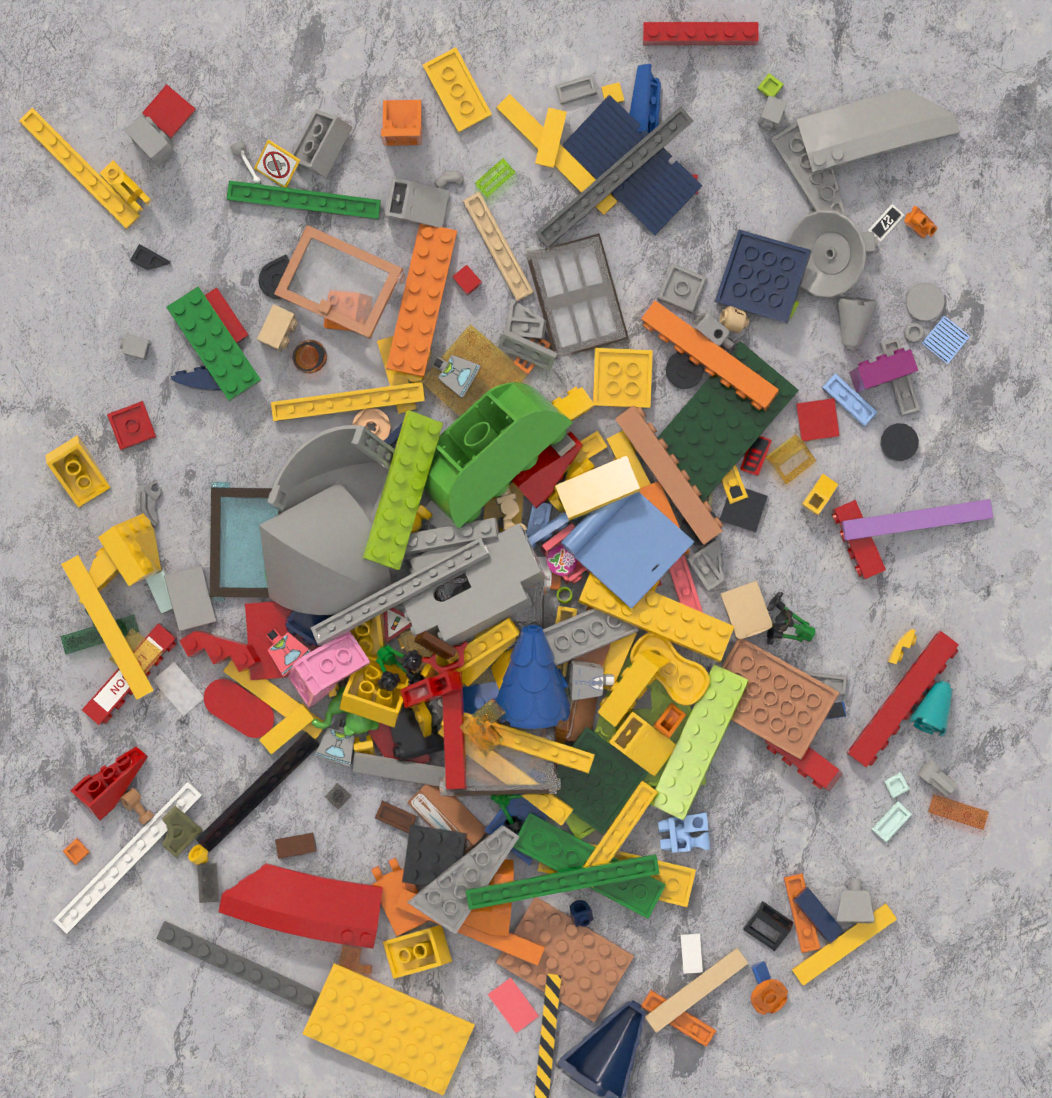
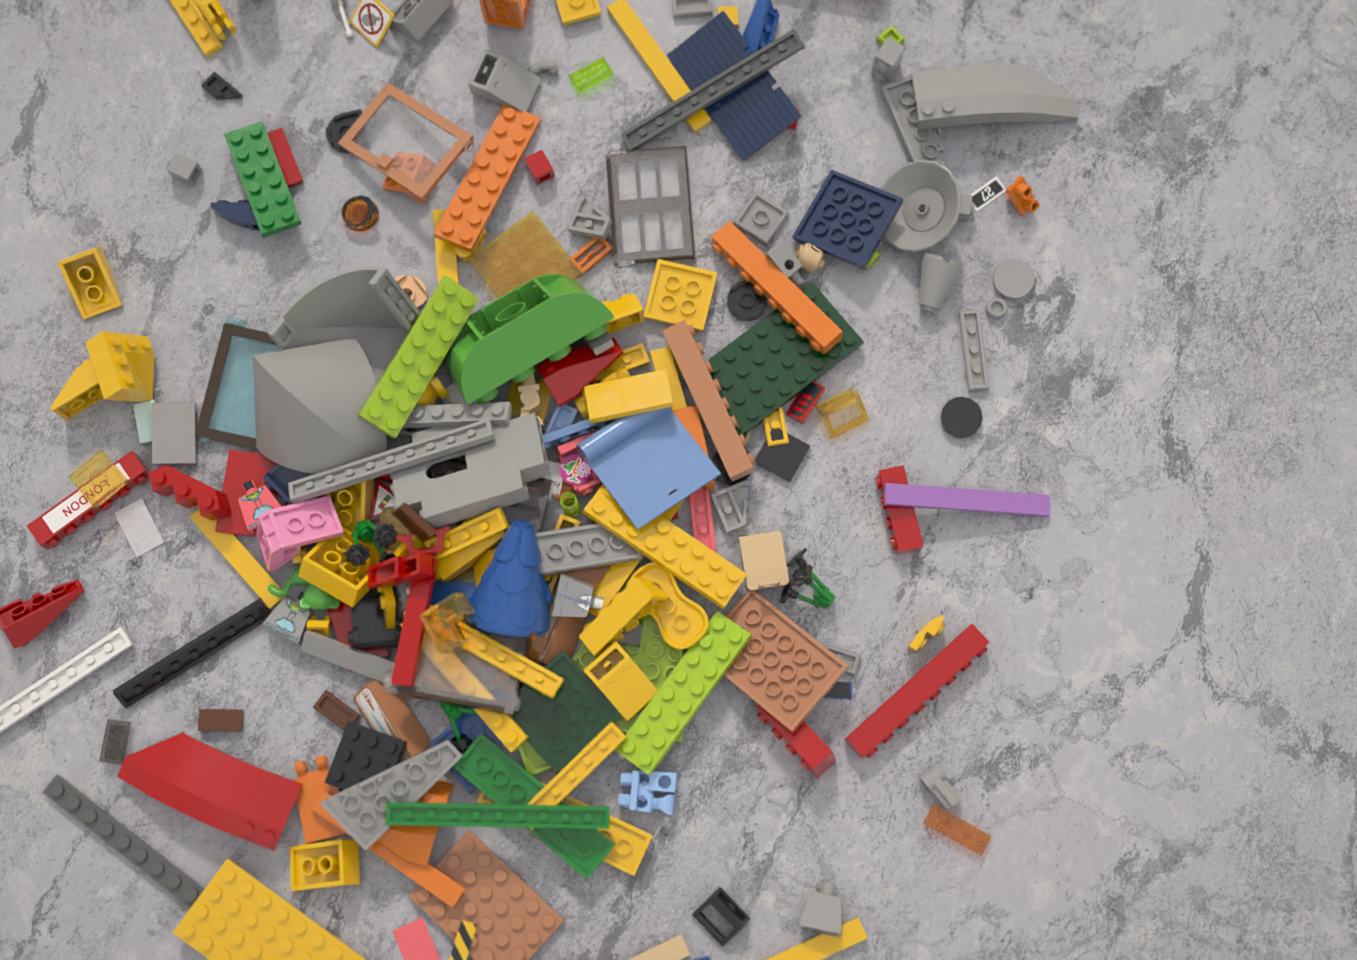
camera: 15 degrees right, 10 degrees down
(91, 637) = (69, 451): clear green plate -> none
(107, 627) = (72, 440): yellow tile -> none
(131, 425) = (160, 248): red tile -> none
(131, 801) = (55, 635): medium nougat leg -> none
(148, 501) = (157, 327): flat silver piece -> none
(180, 831) = (99, 678): olive tile -> none
(198, 855) = (112, 709): yellow tile -> none
(238, 708) = (196, 559): red tile -> none
(277, 328) = (331, 175): tan brick -> none
(287, 728) = (241, 590): yellow tile -> none
(303, 200) = (391, 59): green plate -> none
(338, 796) = (278, 675): clear smoke plate -> none
(348, 401) = (396, 263): yellow plate -> none
(350, 959) = (249, 859): clear orange plate -> none
(457, 374) = (507, 255): light grey torso -> none
(498, 246) = (579, 142): tan tile -> none
(527, 350) = (586, 246): light grey plate -> none
(550, 137) = (655, 45): yellow tile -> none
(581, 913) = (514, 858): dark blue plate -> none
(669, 720) = (655, 662): orange slope -> none
(691, 953) = (629, 930): white tile -> none
(805, 930) = (761, 909): orange tile -> none
(817, 419) = (878, 377): red tile -> none
(818, 915) = (779, 915): dark blue tile -> none
(819, 494) = (865, 454): yellow slope -> none
(849, 399) = (916, 364): light blue tile -> none
(883, 369) = (957, 335): magenta wedge -> none
(891, 821) = (881, 826): light aqua tile -> none
(896, 785) = (893, 786): light aqua tile -> none
(934, 710) = (949, 710): teal cone -> none
(945, 339) = (1029, 322): light blue sticker -> none

